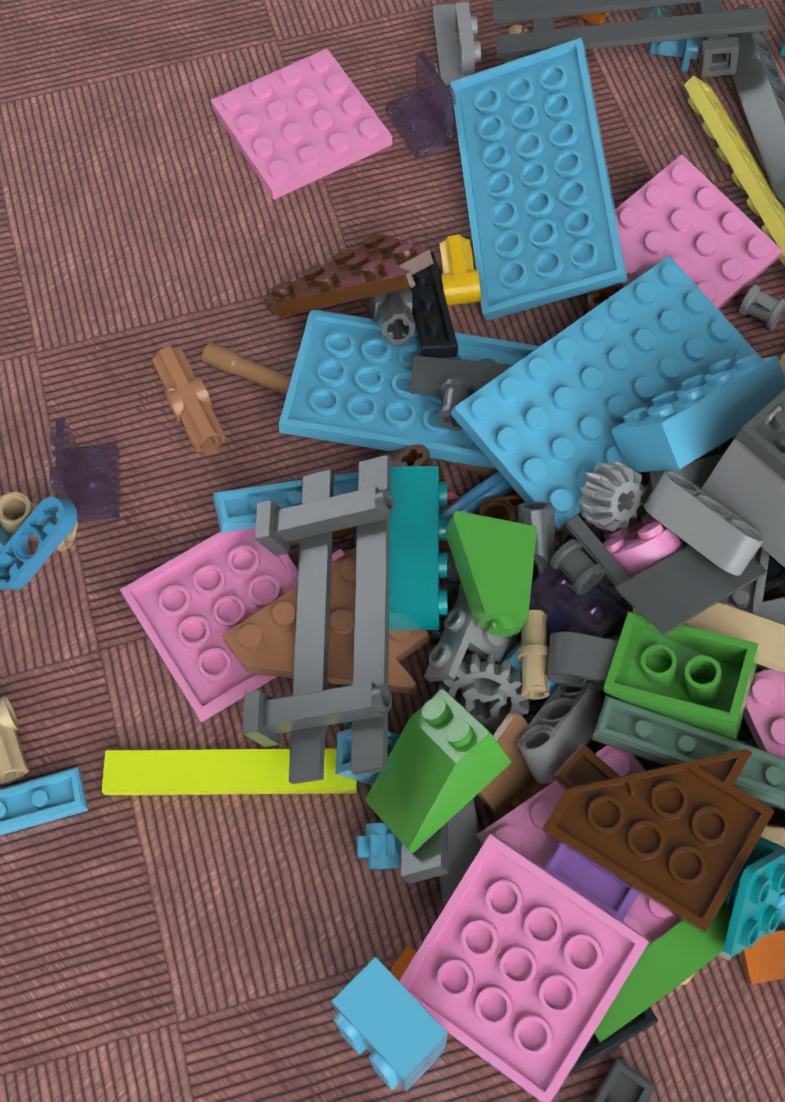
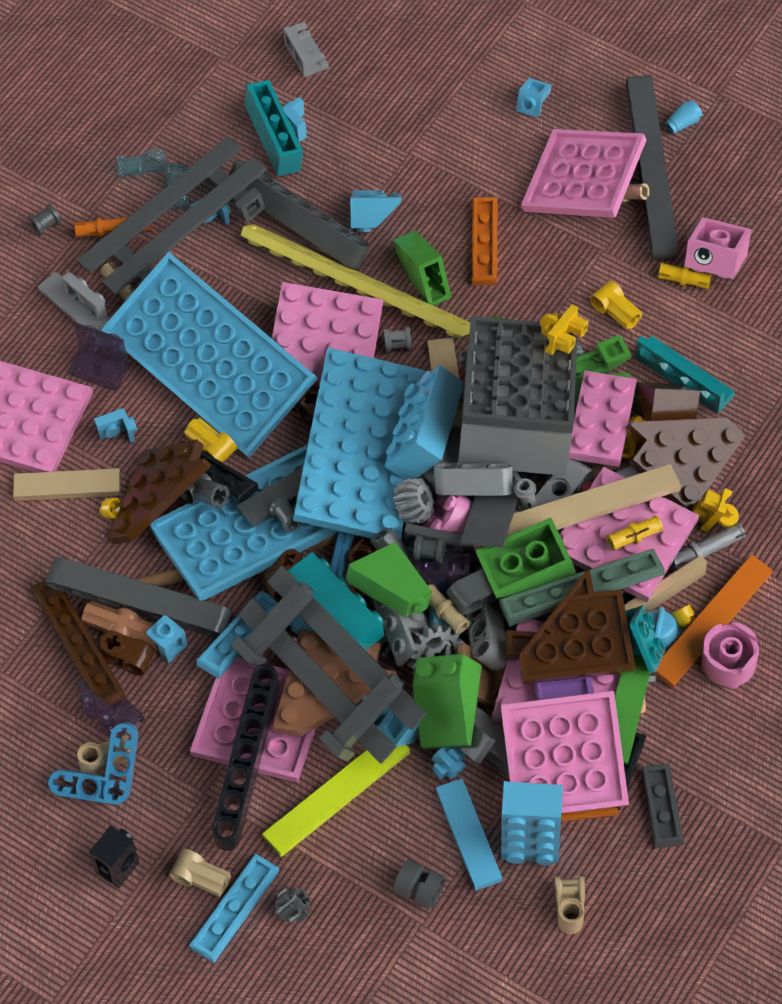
camera: 40 degrees left, 5 degrees down
(52, 868) = (293, 905): none -> dark grey gear
(125, 385) = (78, 643): none -> reddish brown tile
(153, 664) = (246, 768): none -> black beam
(163, 431) = (126, 652): none -> reddish brown piece
(202, 958) = (419, 884): none -> dark grey wheel
(213, 446) = (168, 637): none -> medium azure bracket
(226, 380) = (137, 596): none -> dark grey beam
(278, 215) = (66, 484): none -> tan tile
(299, 264) = (110, 504): none -> yellow hinge
(329, 958) = (469, 834): none -> medium azure tile
(378, 186) = (114, 423): none -> medium azure bracket
(755, 586) = (525, 490): none -> light grey pin

